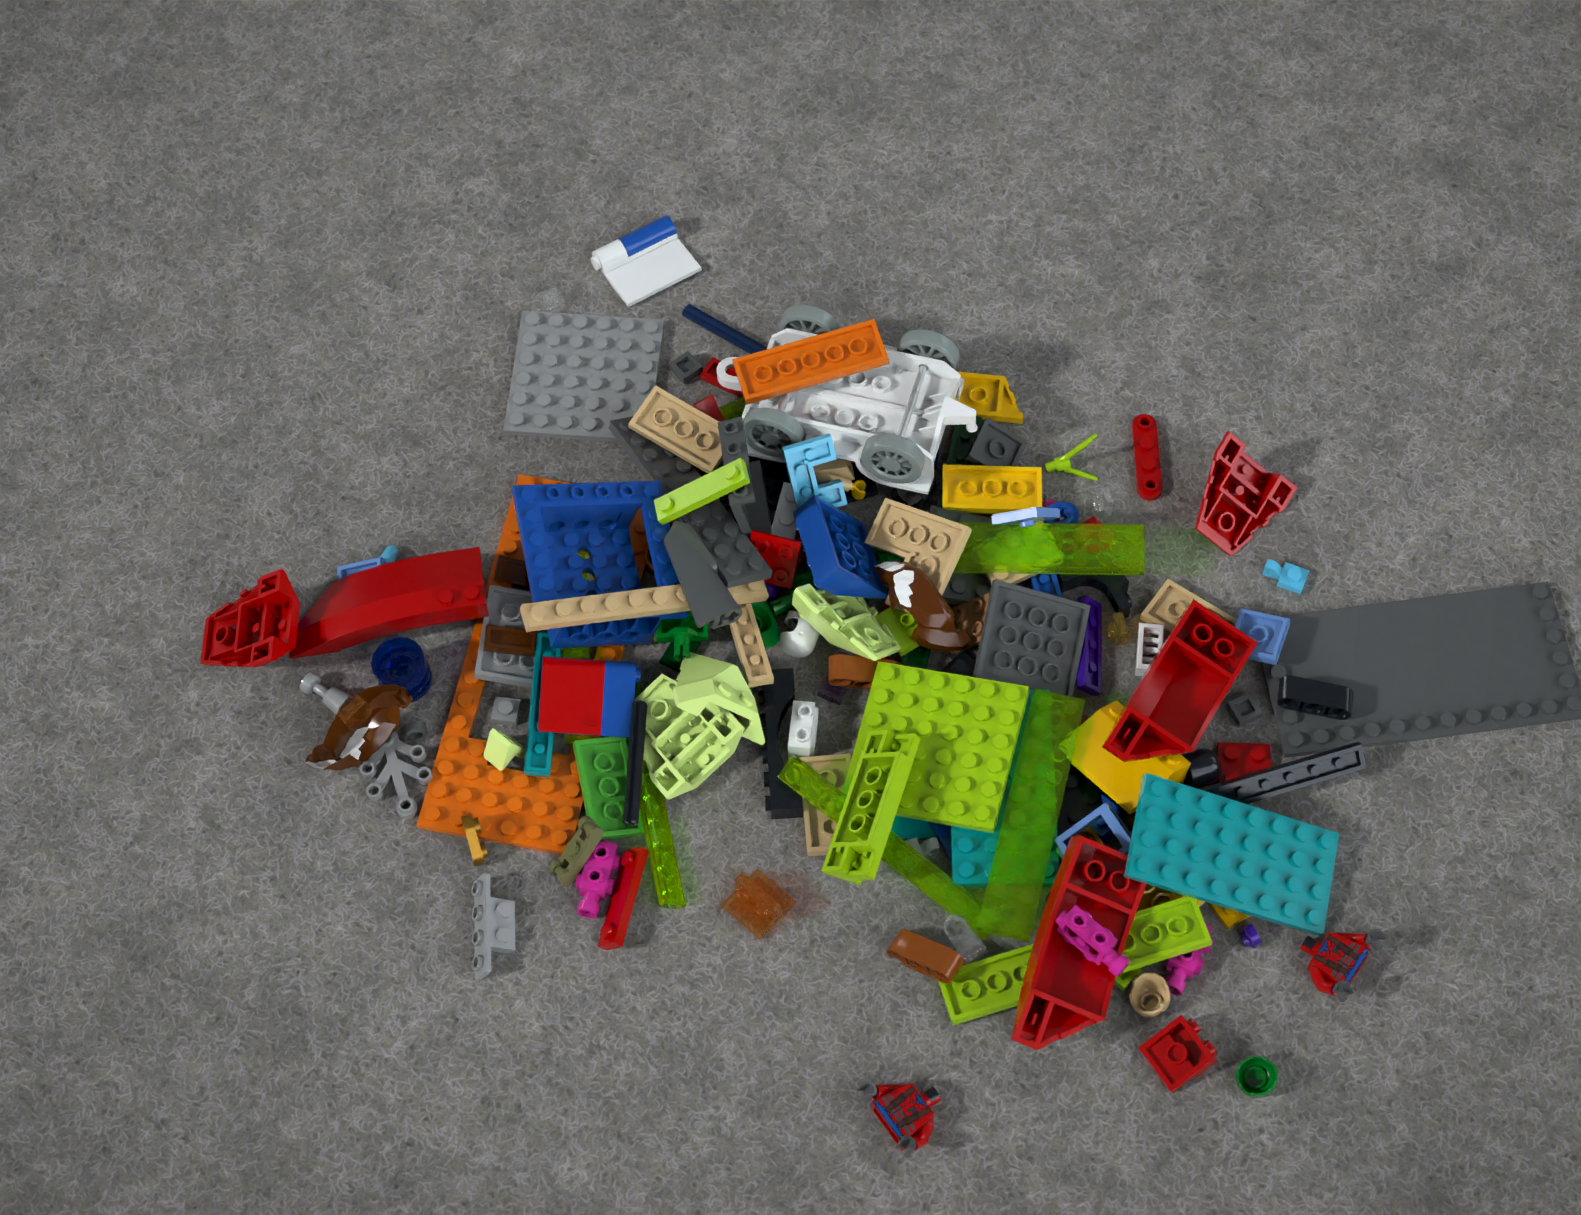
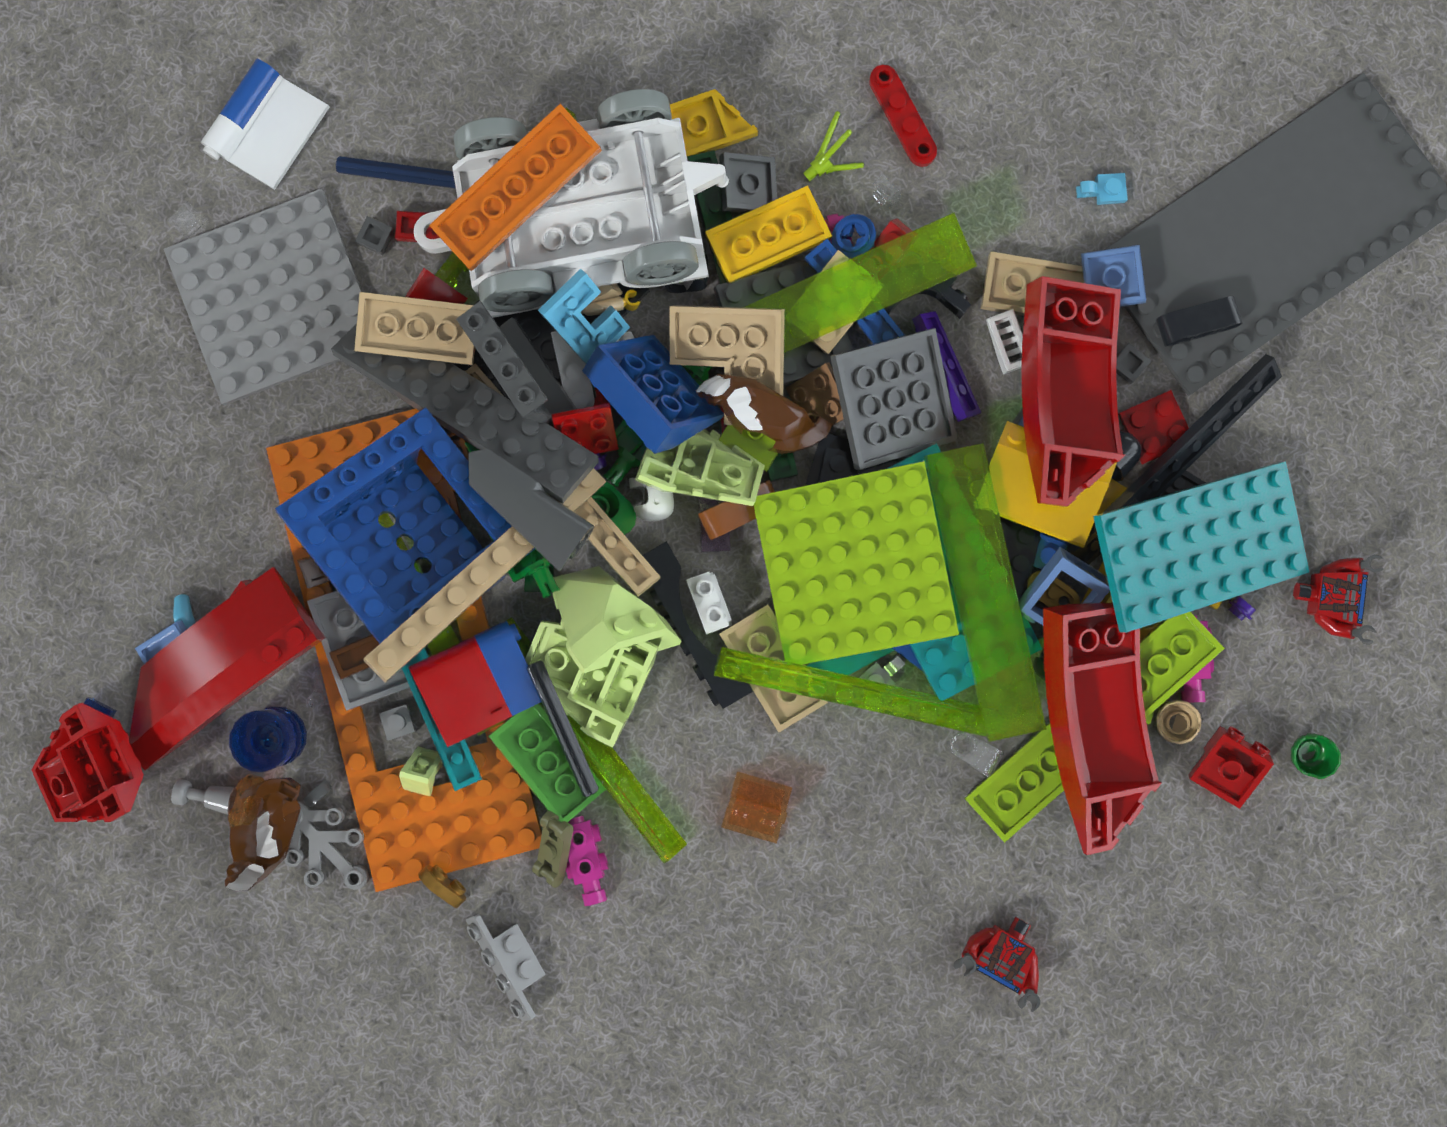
camera: 30 degrees left, 25 degrees up
(623, 898) = (623, 870): red plate -> none
(701, 491) = (483, 412): lime plate -> none
(870, 806) = (829, 670): lime slope -> none
(926, 956) = (948, 789): dark orange beam -> none
(1026, 517) = (832, 265): medium blue plate -> none
(1091, 936) = (1116, 710): dark pink brick -> none
(1117, 629) = (966, 333): clear yellow plate -> none
(1239, 497) = (1024, 123): red wedge -> none

